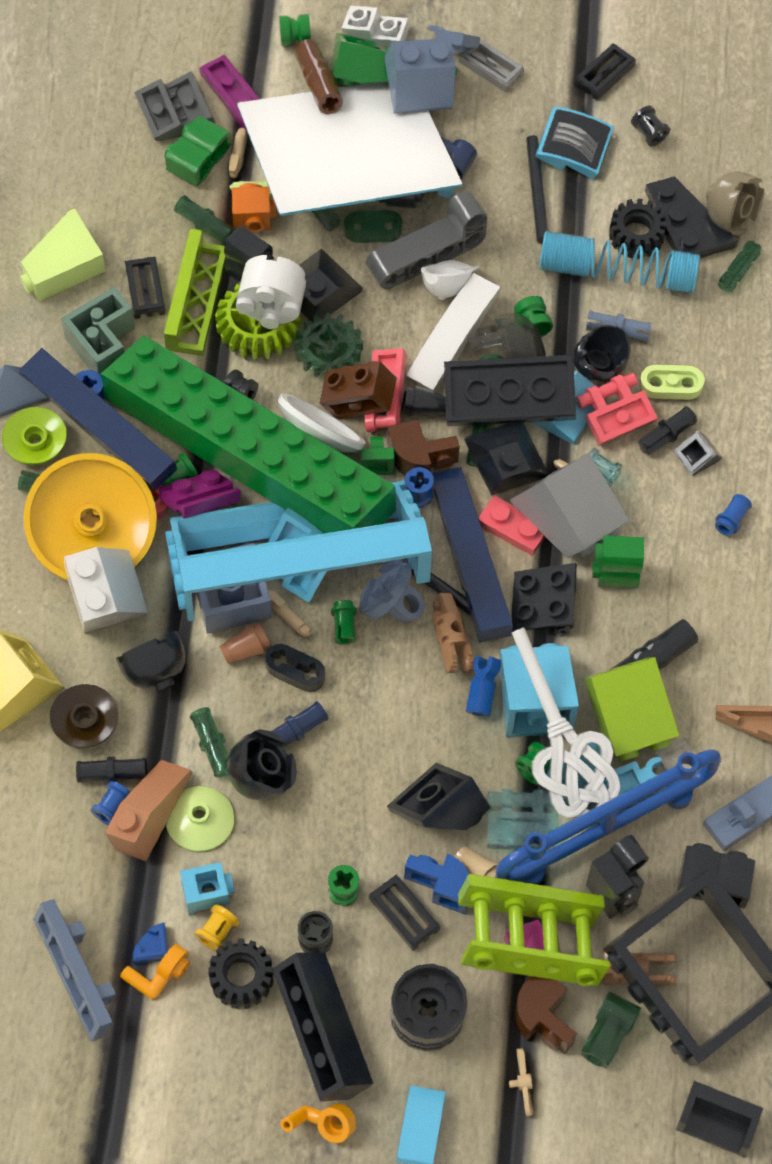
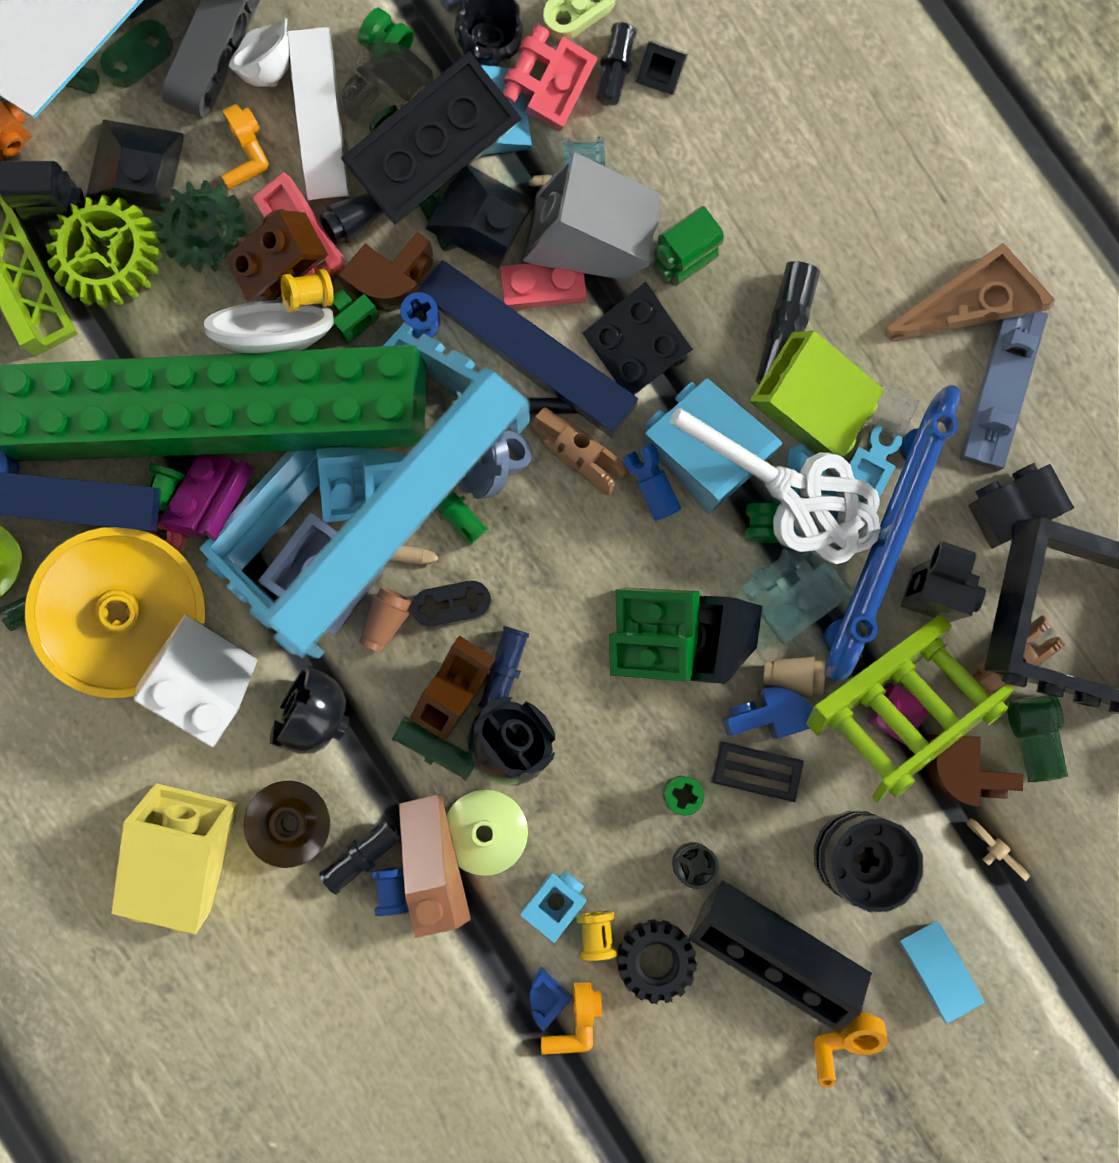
camera: 40 degrees left, 20 degrees up
(61, 945) = (531, 1107): sand blue hinge -> none
(236, 380) = (149, 342): black wheel -> none
(246, 713) = (452, 688): none -> reddish brown brick
(271, 290) = (97, 214): white brick -> none
(360, 421) = (307, 290): none -> yellow bush
(401, 309) = (243, 127): none -> light orange plate
(408, 773) = (655, 634): none -> green slope
(728, 521) = (750, 117): blue pin -> none

